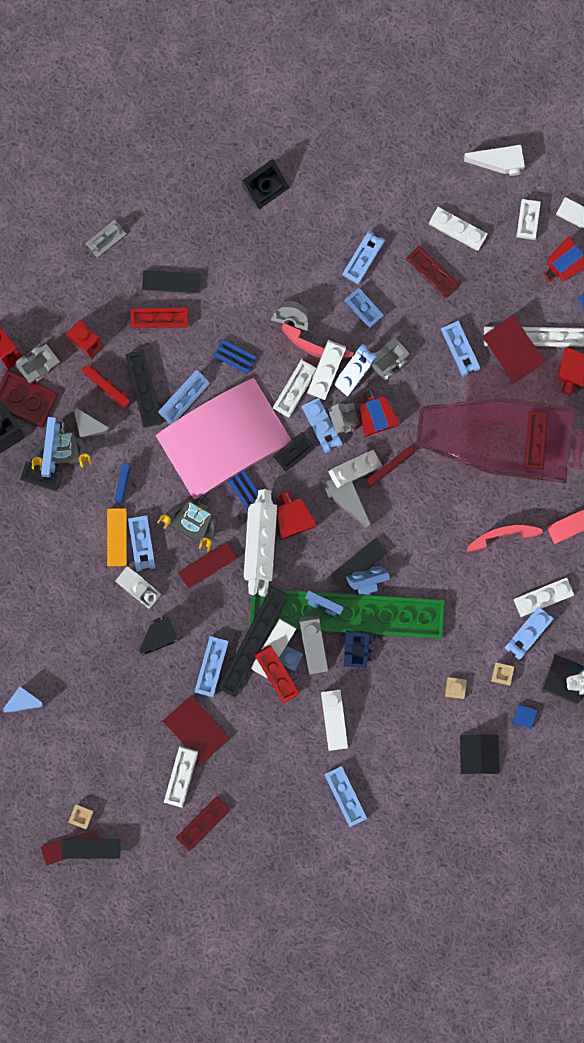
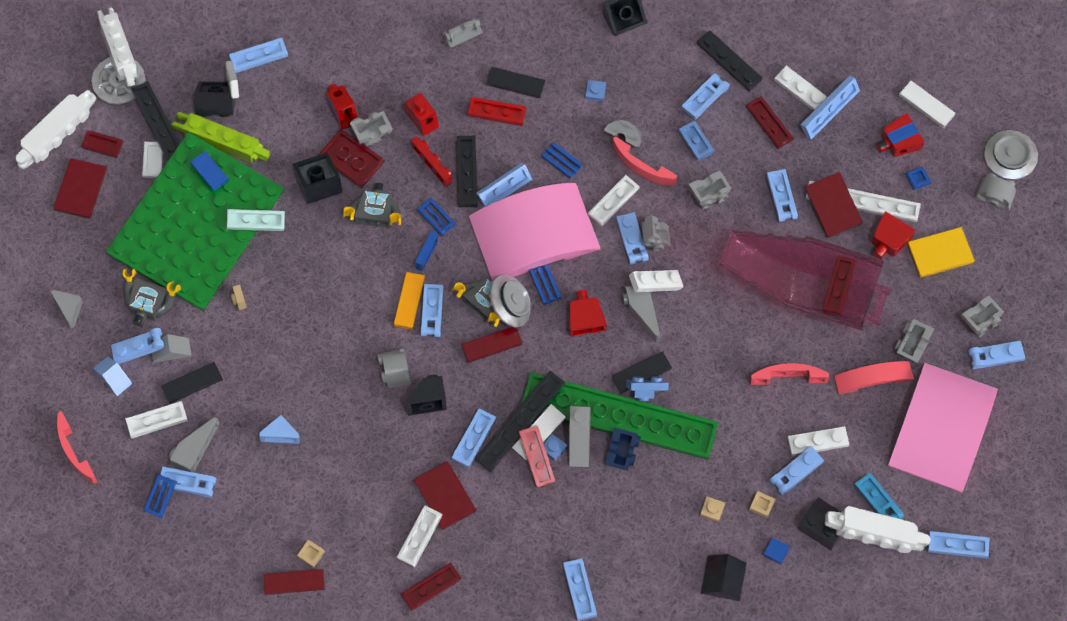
camera: 15 degrees right, 15 degrees down
(35, 477) = (350, 230): black plate -> none
(50, 447) = (364, 200): light blue plate -> none
(88, 426) = (407, 194): light grey slope -> none
(91, 848) = (313, 585): black tile -> none
(118, 610) = (395, 368): none -> light grey cylinder
(136, 453) = (446, 228): none -> blue tile
(138, 587) = (419, 349): white slope -> none
(216, 520) = (510, 300): none -> piece
(252, 273) = (595, 90): none -> medium blue plate
(260, 543) = (548, 330): white hinge -> none
(293, 452) = (599, 256): black plate -> none
(326, 369) = (647, 186): white plate -> none
(331, 608) = (603, 402): medium blue plate -> none
(334, 720) = (584, 512): white slope -> none
(355, 370) = (676, 192): plate -> none
(376, 414) = (687, 238): torso -> none
(380, 212) = (729, 60): none -> black plate
(390, 466) = (691, 287): dark red tile -> none
(490, 243) = (830, 107): none -> light blue plate
(502, 160) = (854, 35): white slope -> none
(528, 219) = (871, 93): white plate -> none

